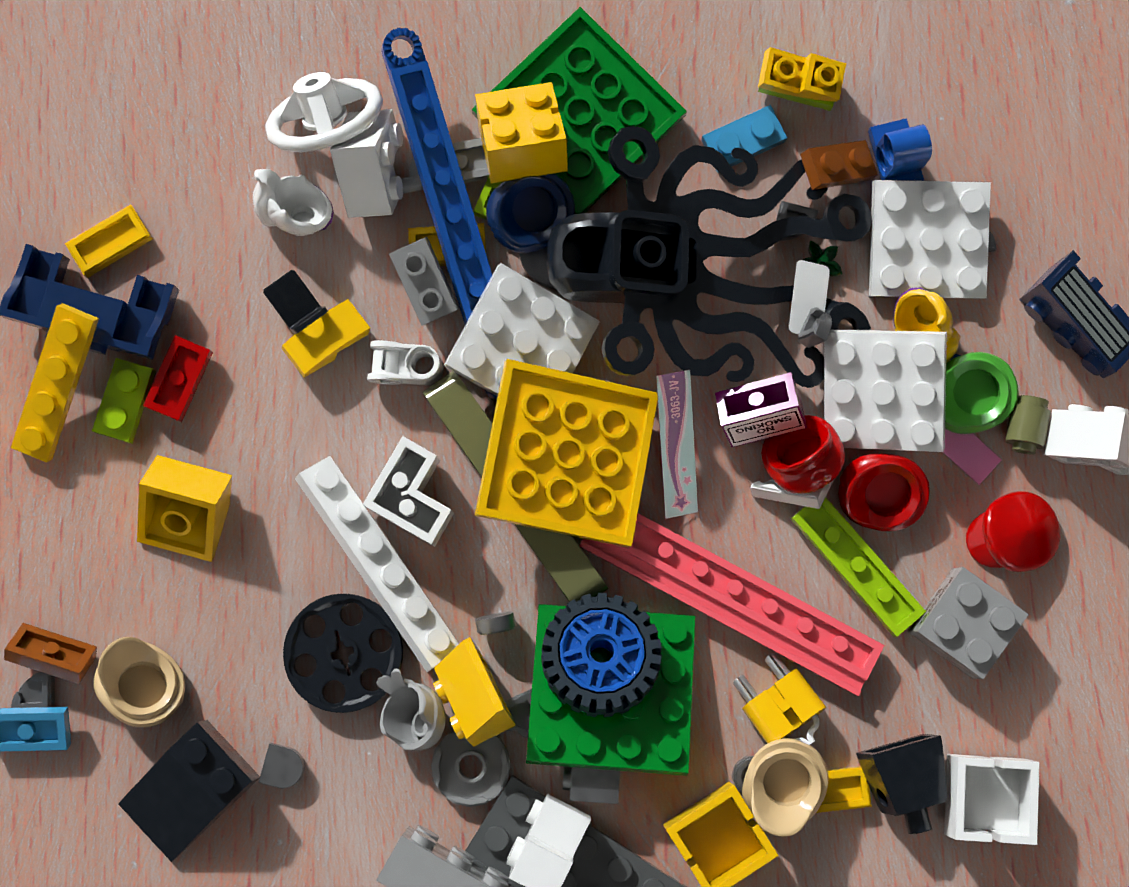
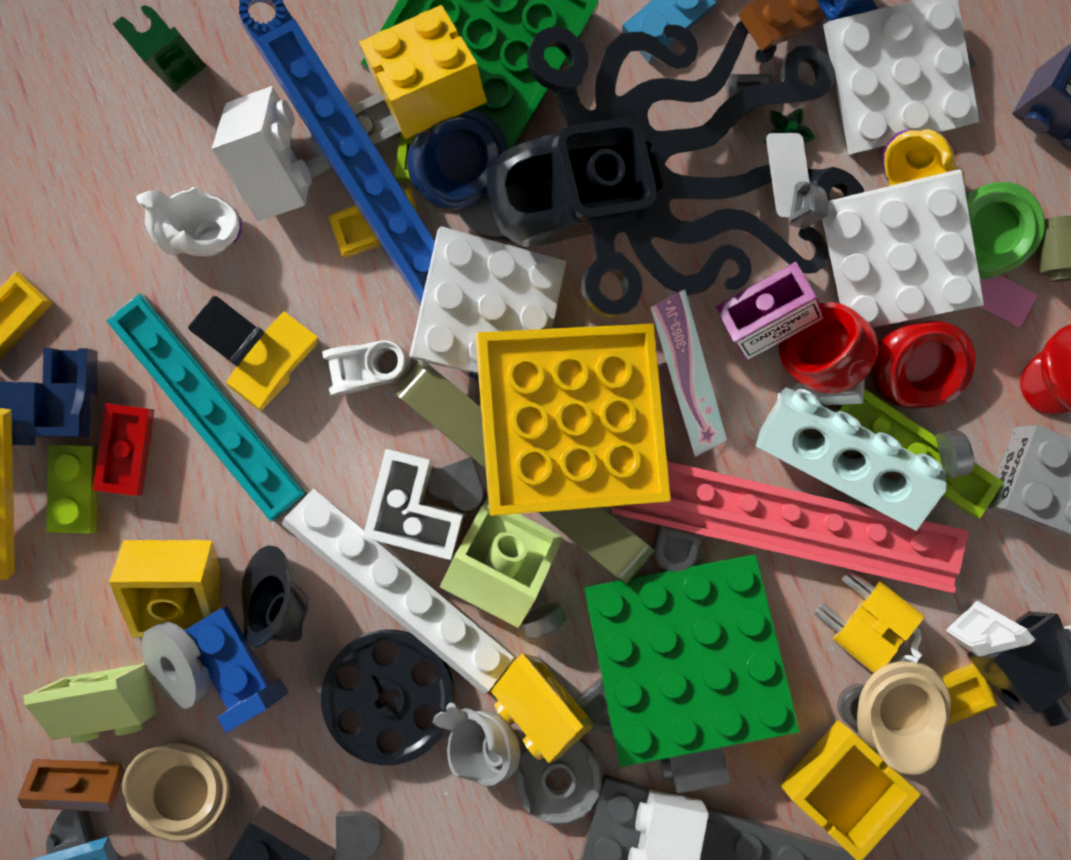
camera: 15 degrees left, 5 degrees up
(92, 587) = (94, 703): none -> yellowish green slope
(170, 573) = (173, 665): none -> light grey tile
(219, 588) = (234, 669): none -> blue bracket
(258, 363) = (206, 407): none -> teal tile
(267, 540) = (270, 600): none -> black piece
(309, 54) = (162, 49): none -> dark green hinge
(322, 106) = (192, 102): white piece -> none
(424, 281) = (361, 269): light grey brick -> none
(454, 485) = (458, 483): none -> flat silver tile
(473, 563) = (502, 564): none -> yellowish green slope
(607, 685) = (707, 625): wheel -> none
(630, 588) = (676, 548): none -> flat silver tile
(800, 573) = (902, 499): none -> light aqua brick
(876, 735) = (987, 631): none -> white tile
(887, 573) = (955, 453): none -> flat silver tile

